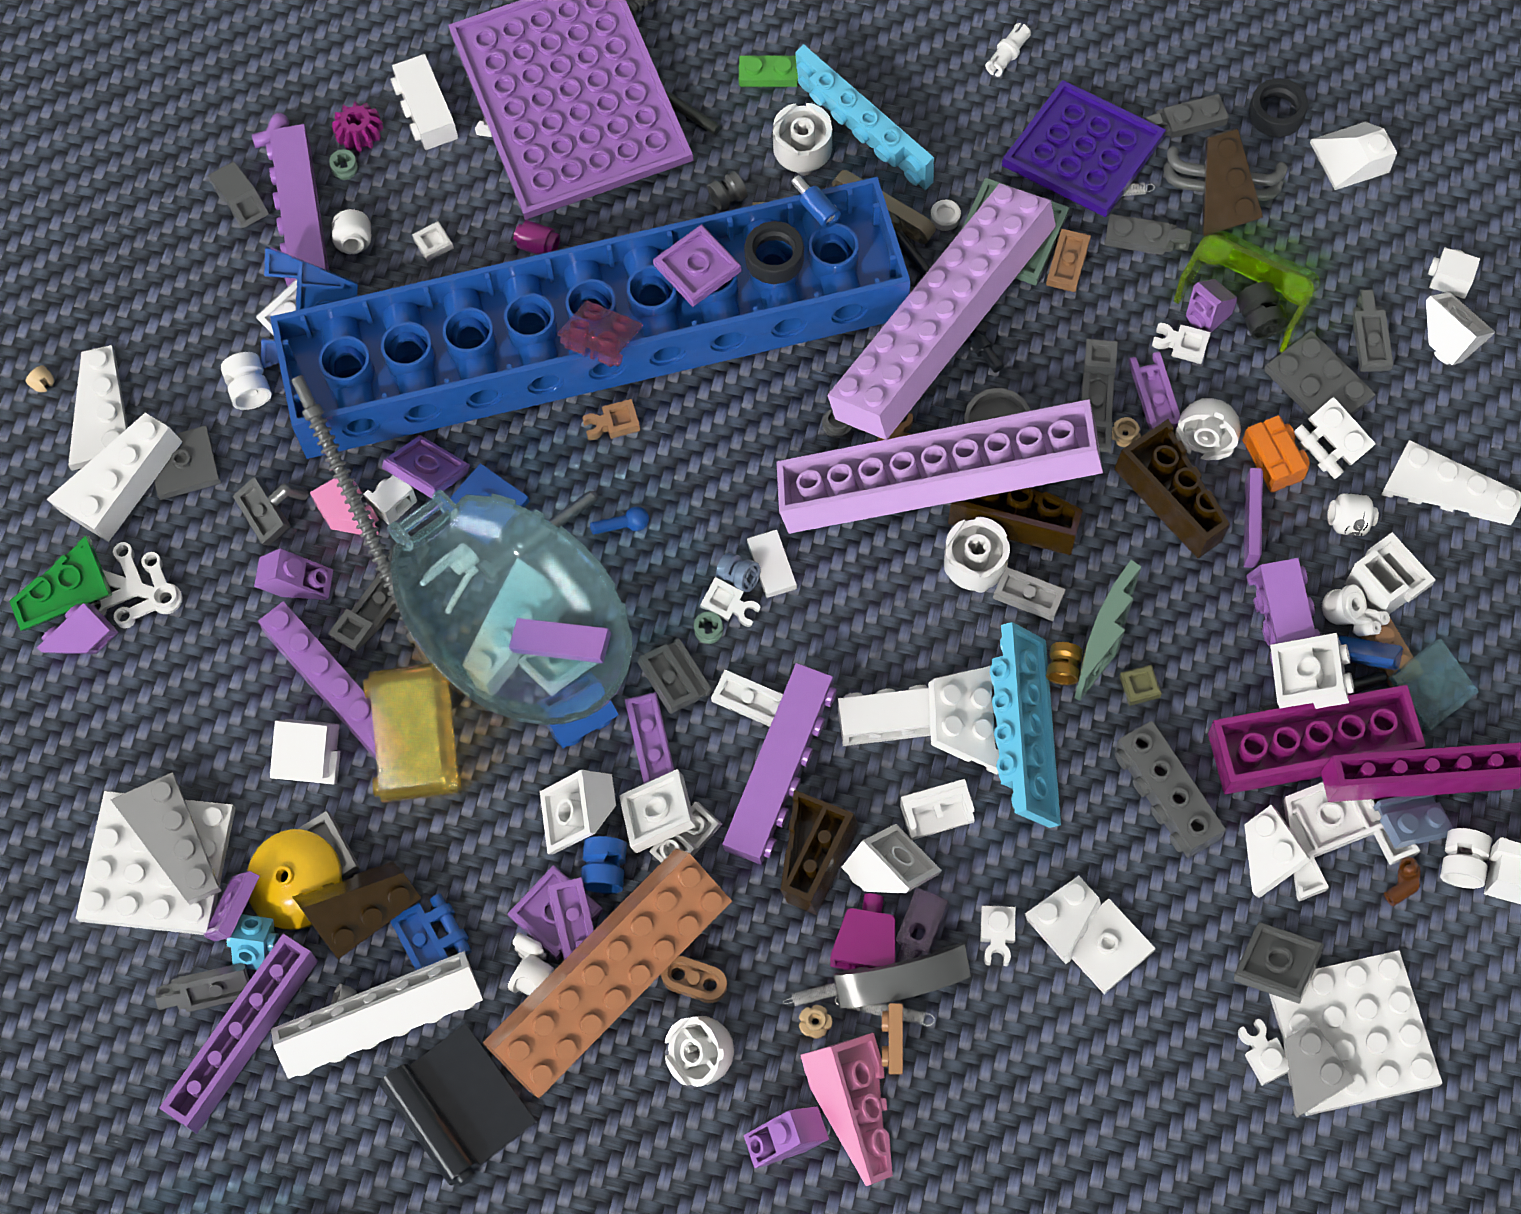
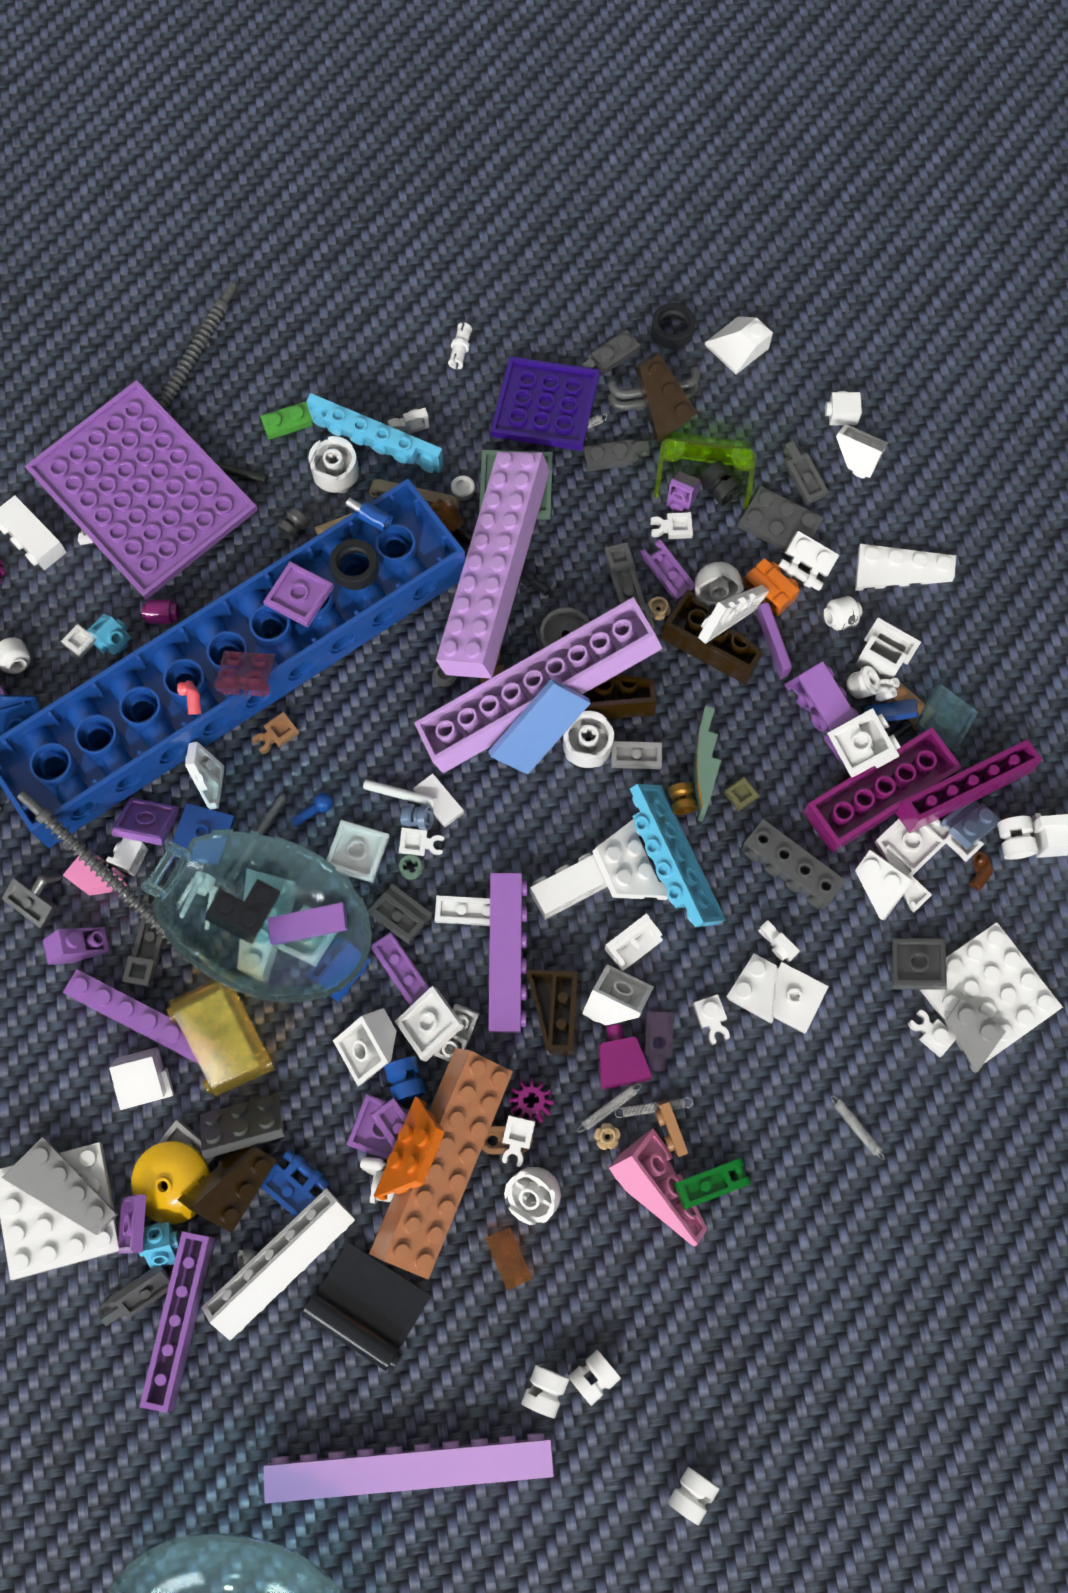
camera: 25 degrees left, 5 degrees up
(397, 844) = (241, 1126): none -> dark grey plate
(468, 235) = (109, 634): none -> medium azure brick
(493, 606) = (243, 917): none -> black brick
(514, 436) = (206, 773): none -> white wing
(530, 338) = (193, 696): none -> coral arm
(576, 945) = (412, 1152): none -> orange wing
(642, 1116) = (508, 1258): none -> clear orange plate
(654, 586) = (357, 850): none -> white plate
(709, 975) = (519, 1136): none -> white plate
(729, 538) = (399, 793): none -> white bar
(746, 956) = (524, 1095): none -> magenta gear
(786, 1136) = (620, 1232): medium lavender slope -> none
(903, 978) = (659, 1082): dark grey slope -> none
(912, 238) = (448, 514): none -> clear orange brick
(914, 119) = (411, 422): none -> white plate
(918, 1122) = (711, 1184): none -> green plate
(921, 515) = (539, 726): none -> medium blue tile
(1068, 260) = (567, 492): medium nougat plate -> none
(1116, 878) = (782, 946): none -> white plate
(1124, 1132) = (847, 1117): none -> white piece
(1209, 460) = (732, 611): none -> white wing

